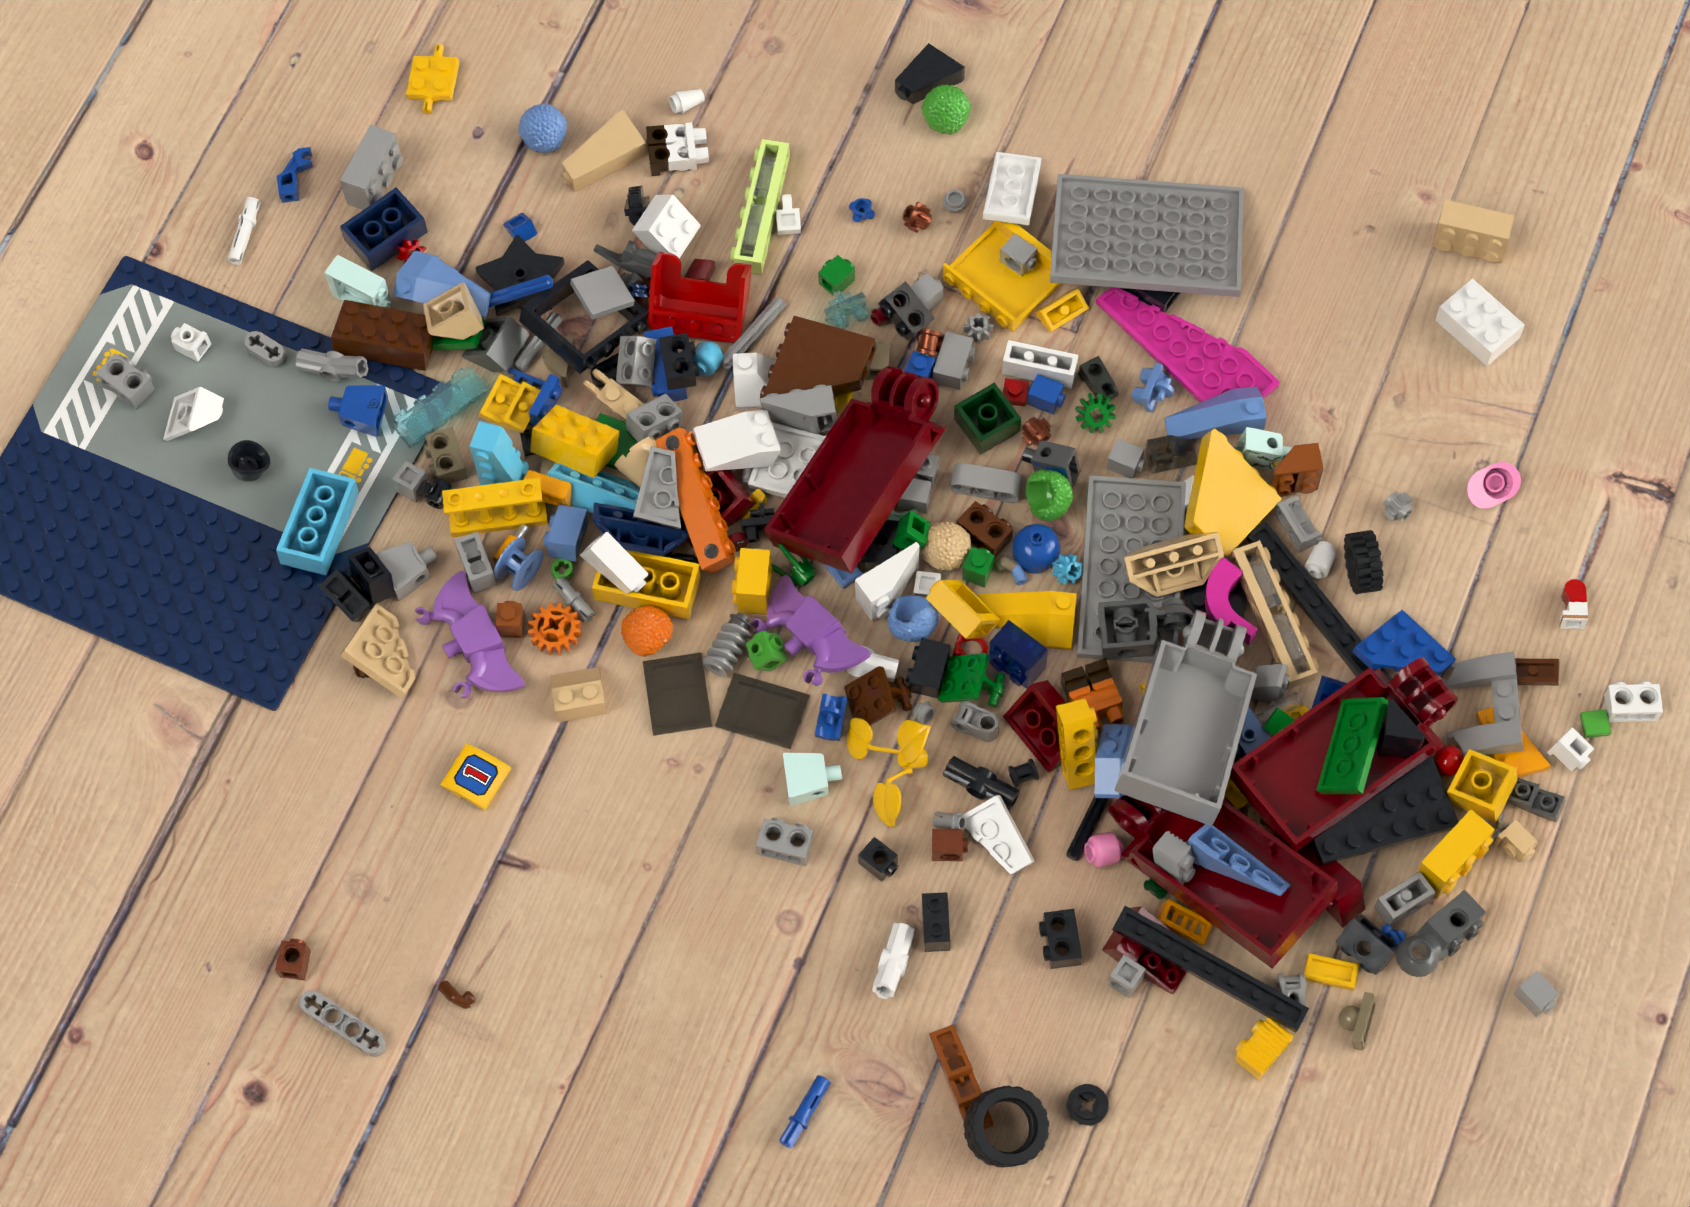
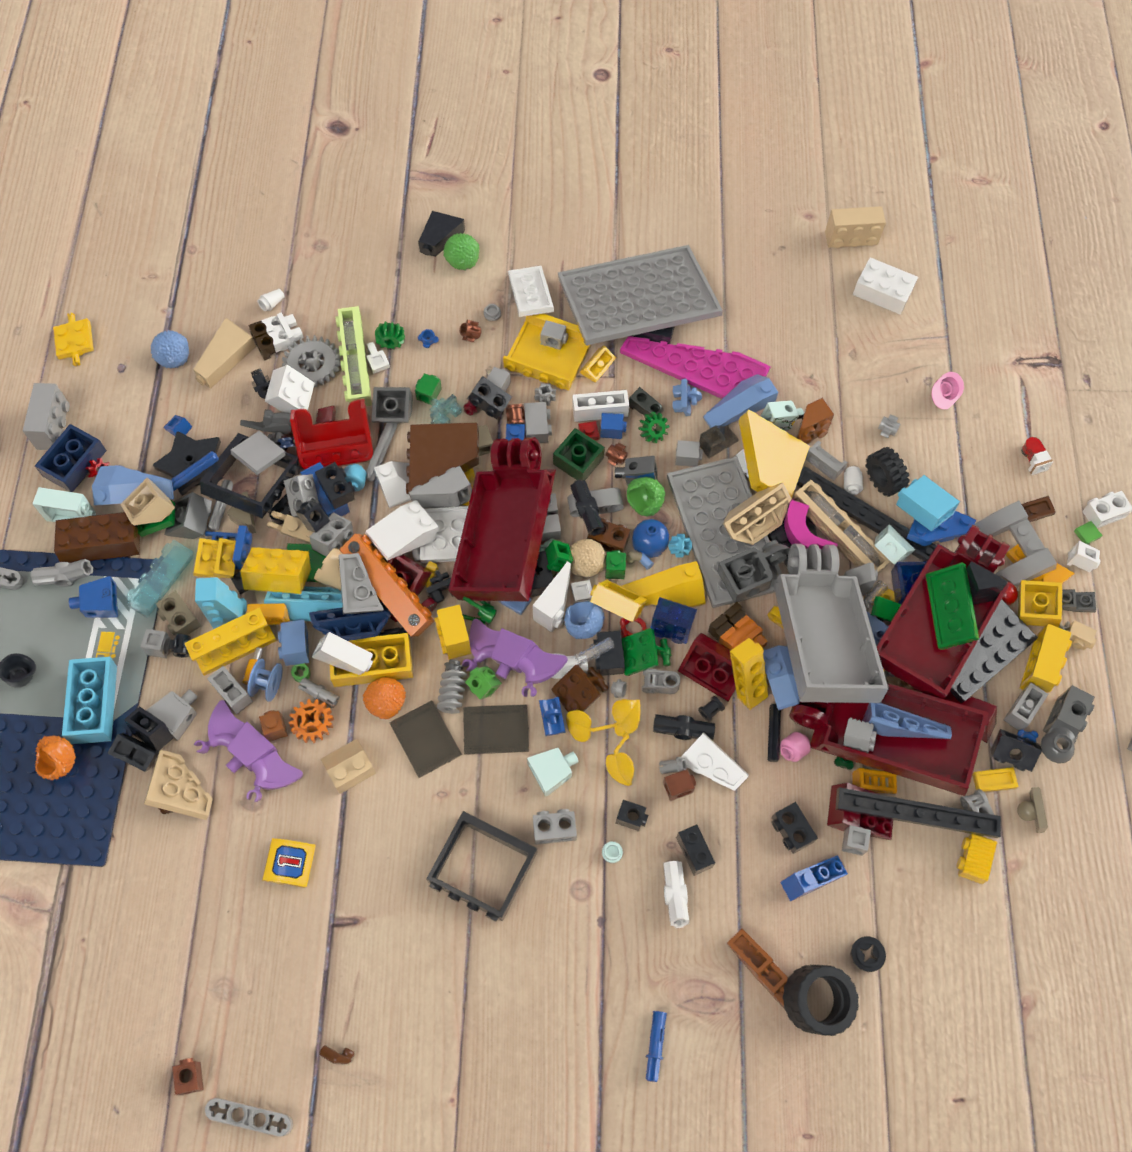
camera: 25 degrees left, 0 degrees up
(259, 571) = (54, 757): none -> orange hair
(643, 398) = (319, 519): none -> black brick
(708, 186) = (310, 355): none -> light grey gear
(715, 825) = (496, 834): none -> black window
(783, 283) = (391, 405): none -> dark grey slope
(814, 192) = (389, 335): none -> green gear
(840, 892) = (612, 852): none -> light aqua plate
(908, 658) = (594, 651): none -> clear pin
(969, 485) = (587, 507): none -> black piece
(1057, 1000) = (813, 878): none -> blue slope
(1330, 656) = (893, 545): none -> light aqua torso
(1395, 616) = (927, 502): none -> medium azure brick

